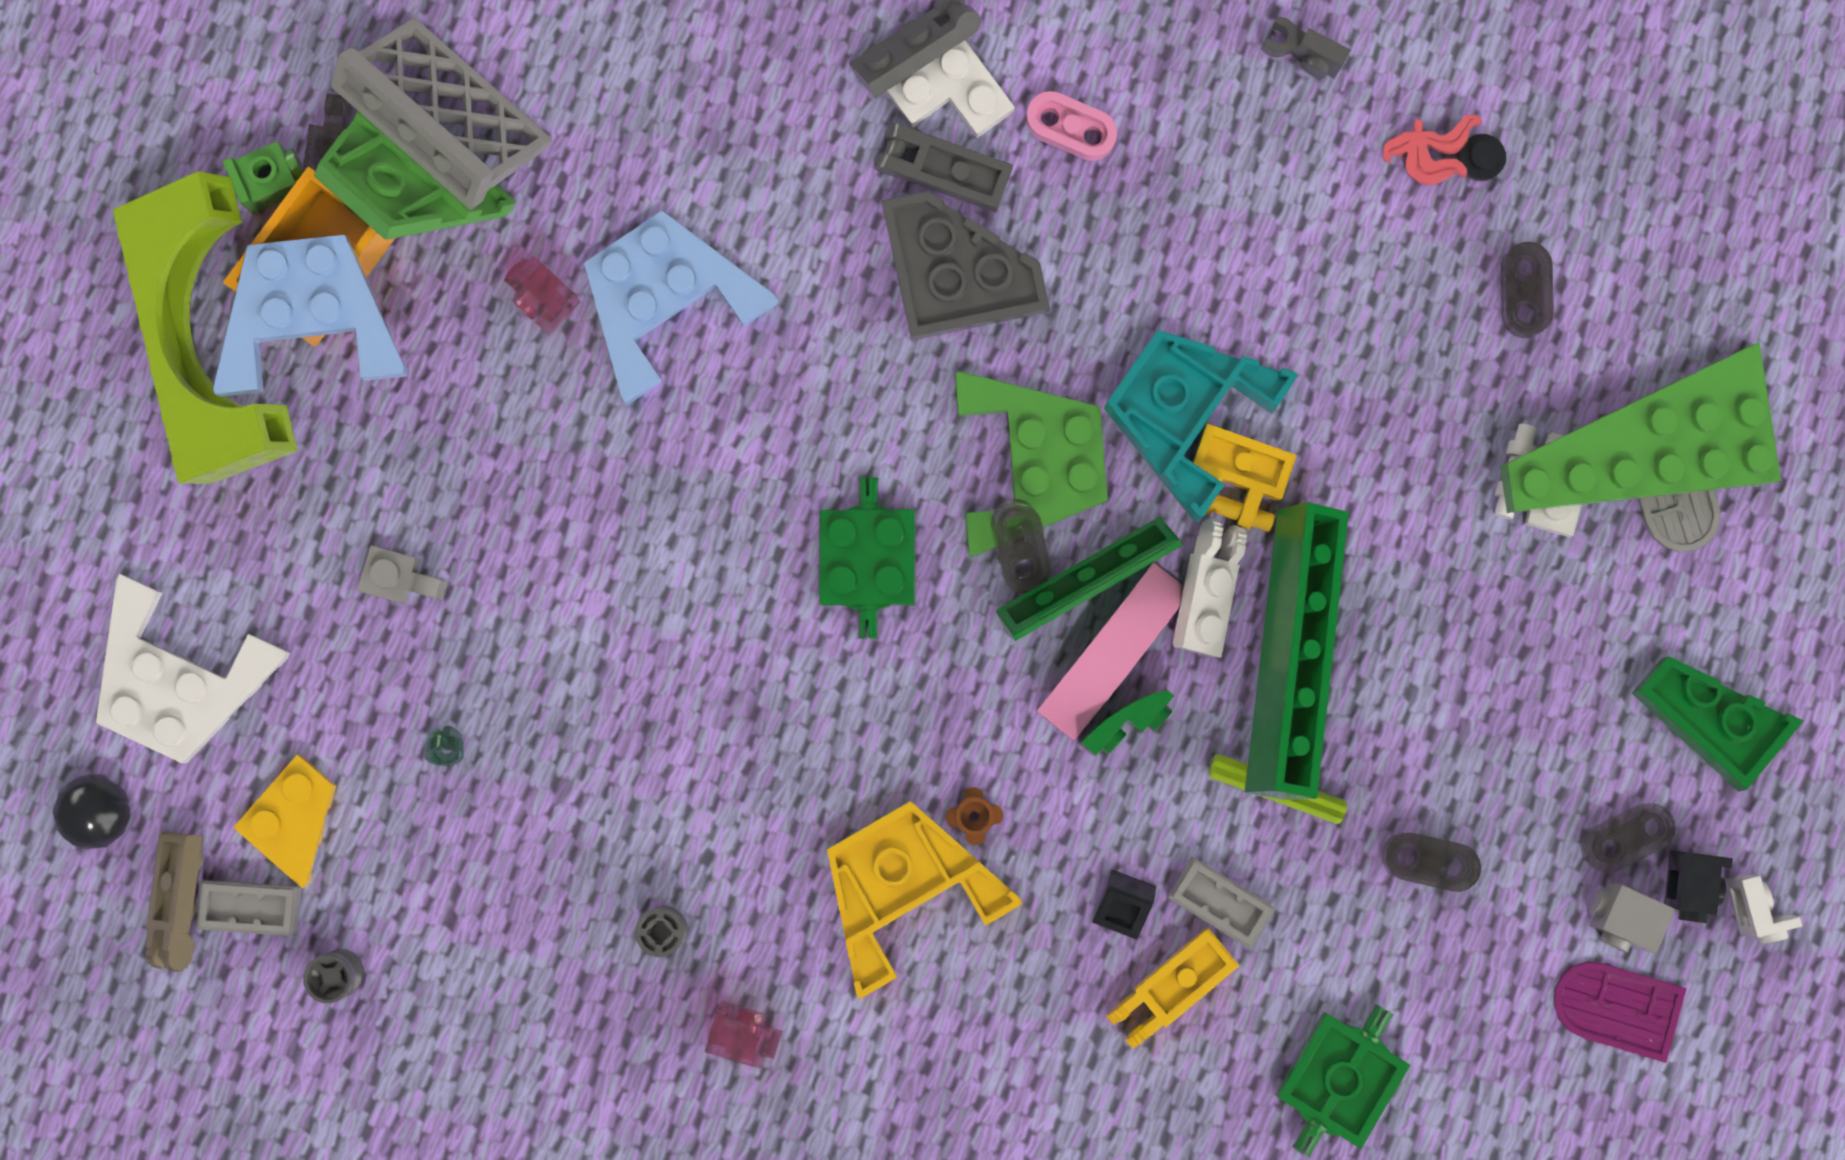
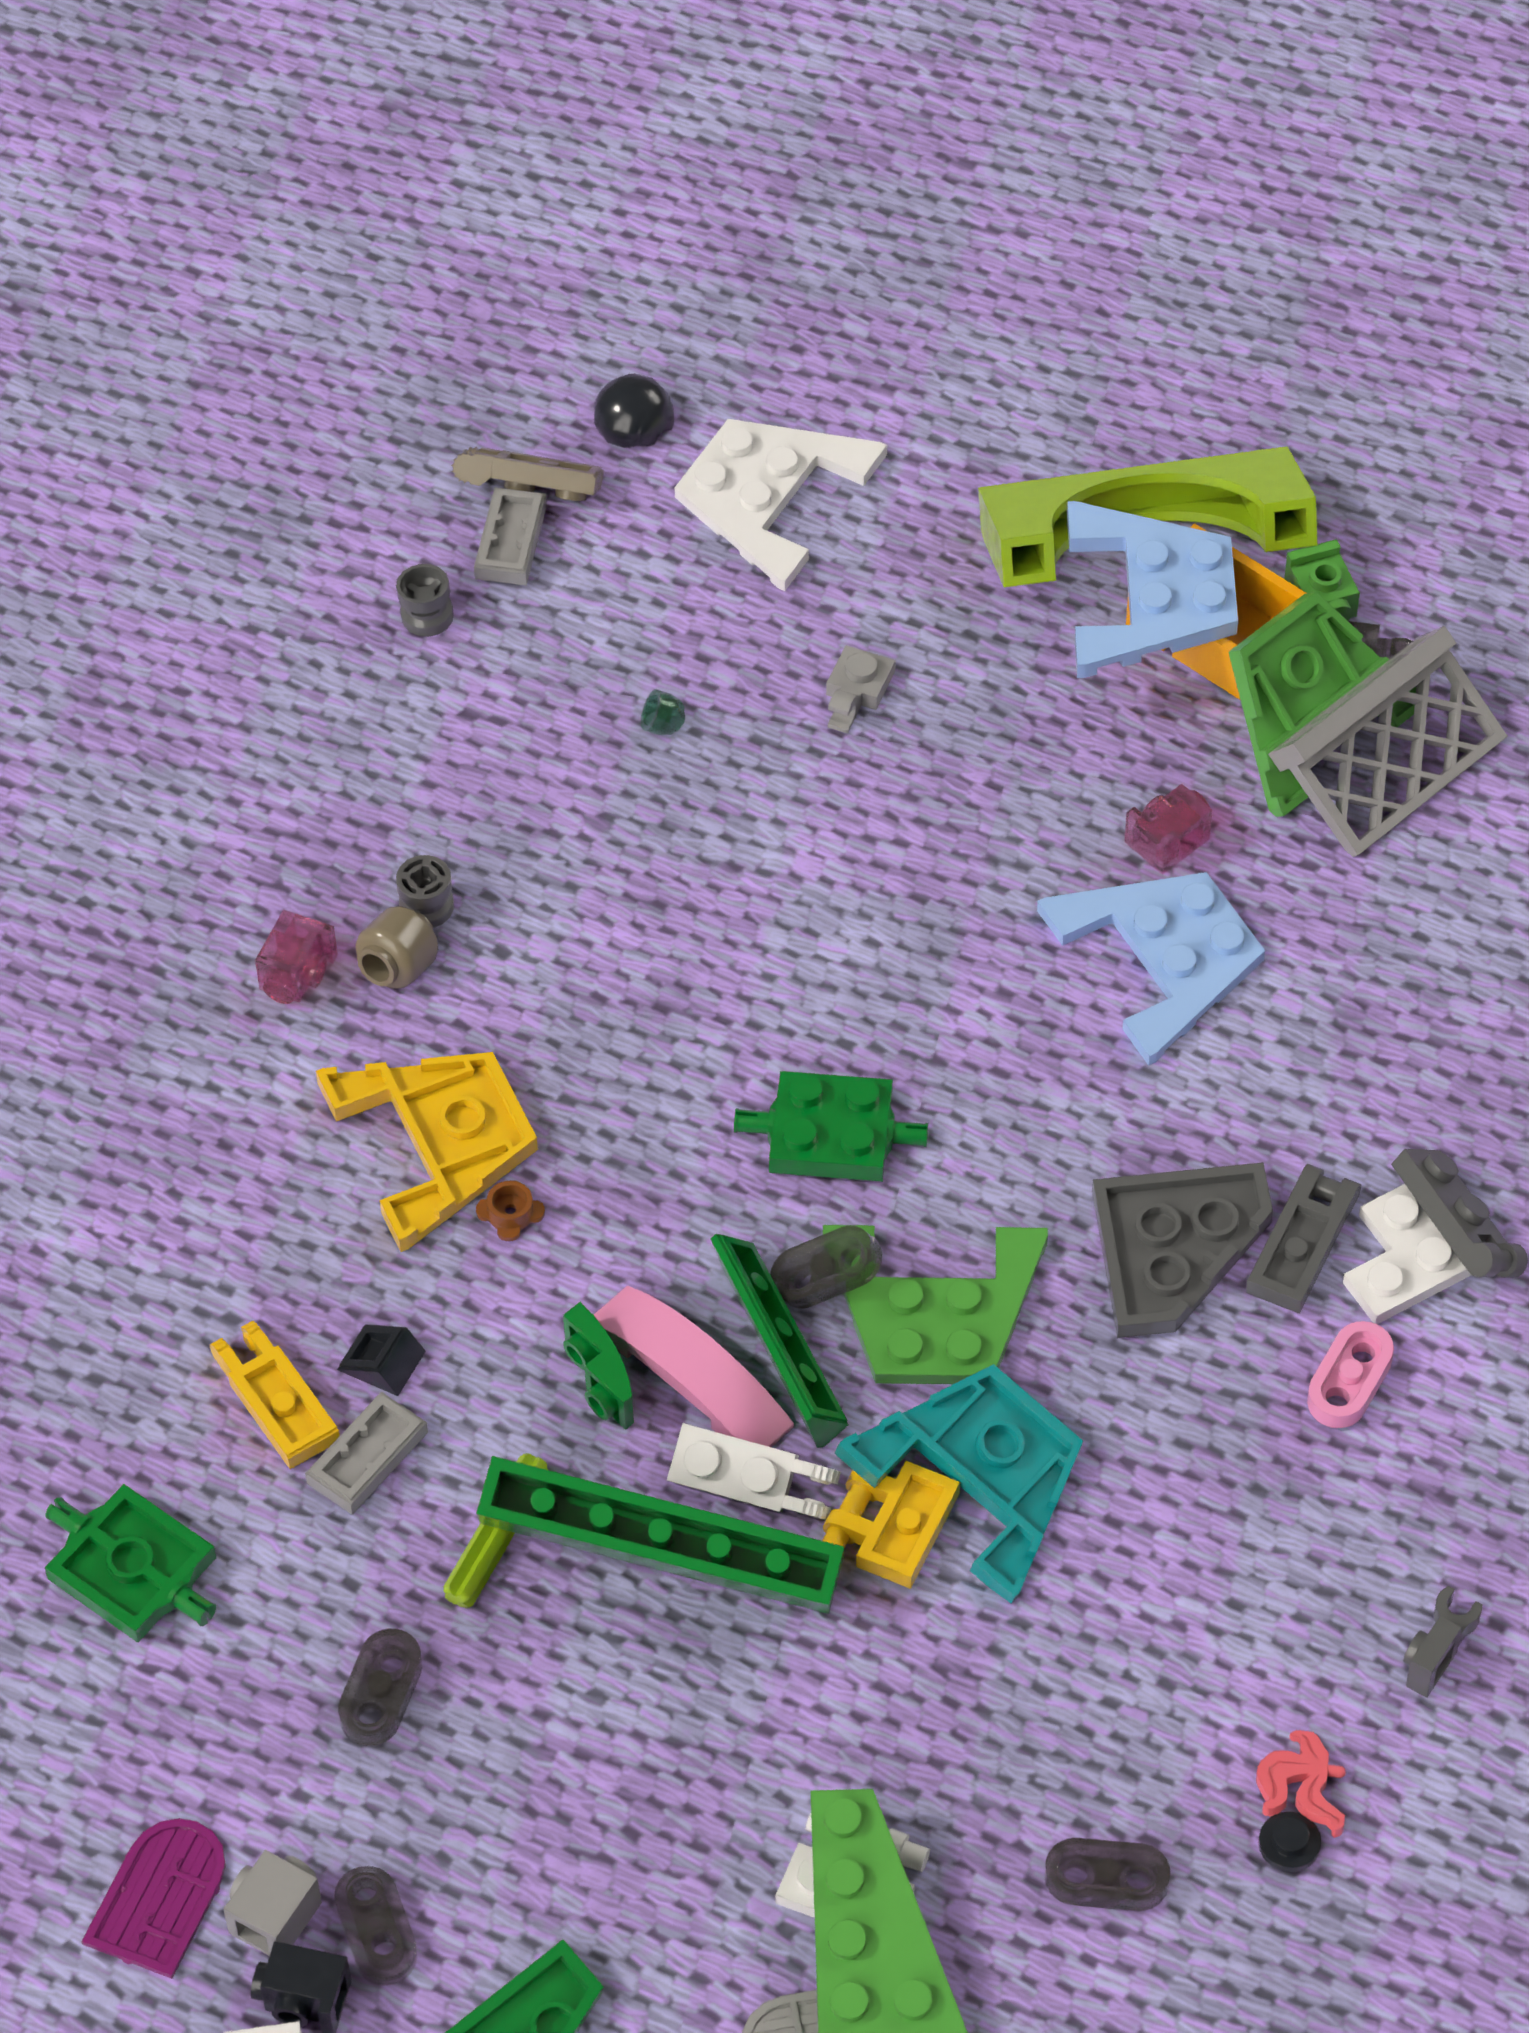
camera: 100 degrees right, 30 degrees down
(291, 819) = (601, 577): yellow wing -> none
(722, 947) = (396, 947): none -> dark tan head

